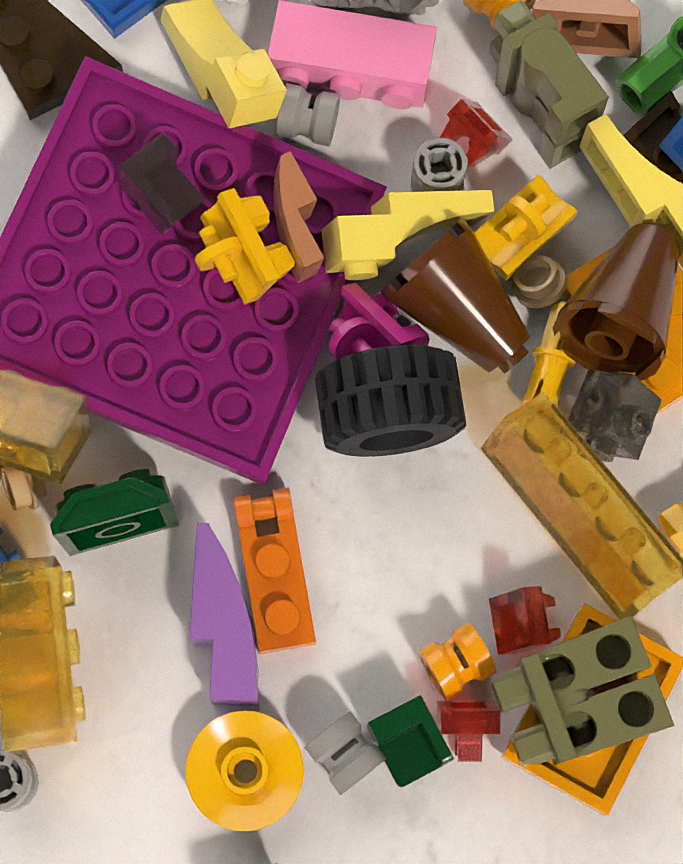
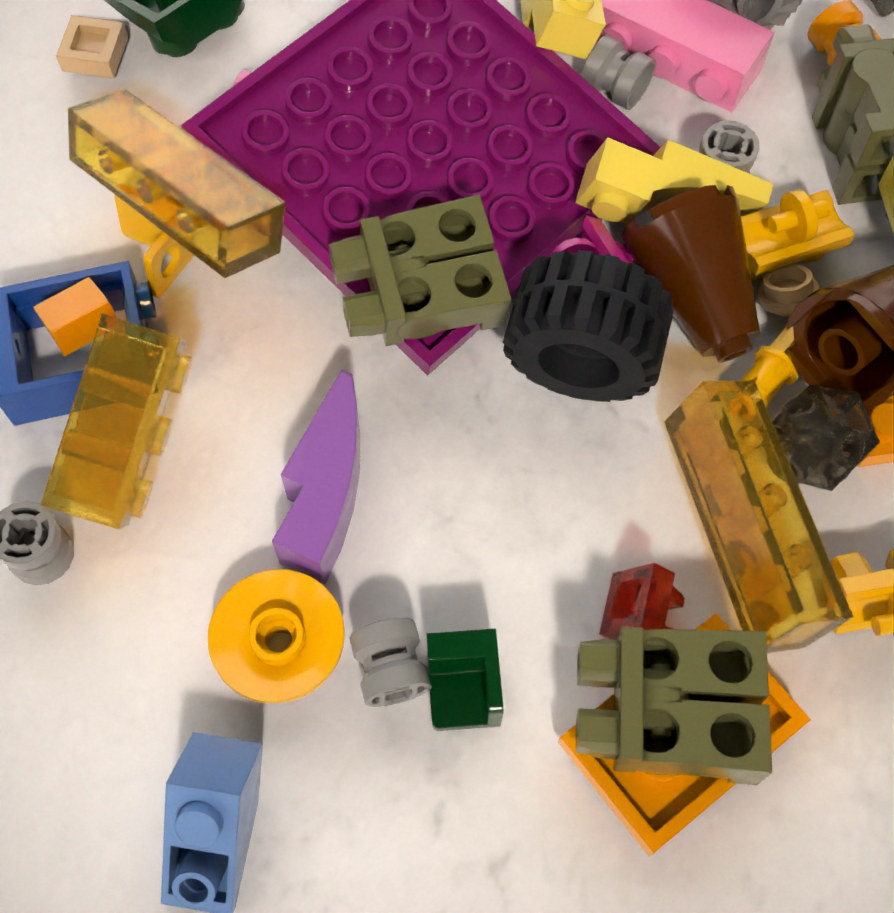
camera: 25 degrees right, 10 degrees down
(22, 488) = (196, 285): tan plate -> none
(113, 512) = (262, 330): dark green slope -> none
(158, 184) = (444, 57): clear smoke panel -> none
(208, 409) = (424, 272): none -> olive hips
(237, 248) = (495, 139): yellow hips -> none
(275, 573) = (400, 461): orange plate -> none
(292, 206) = (565, 136): nougat slope -> none
(445, 661) = (536, 621): light orange wheel -> none
(468, 723) = (535, 686): clear red tile -> none
(485, 134) = (780, 142): clear red tile -> none

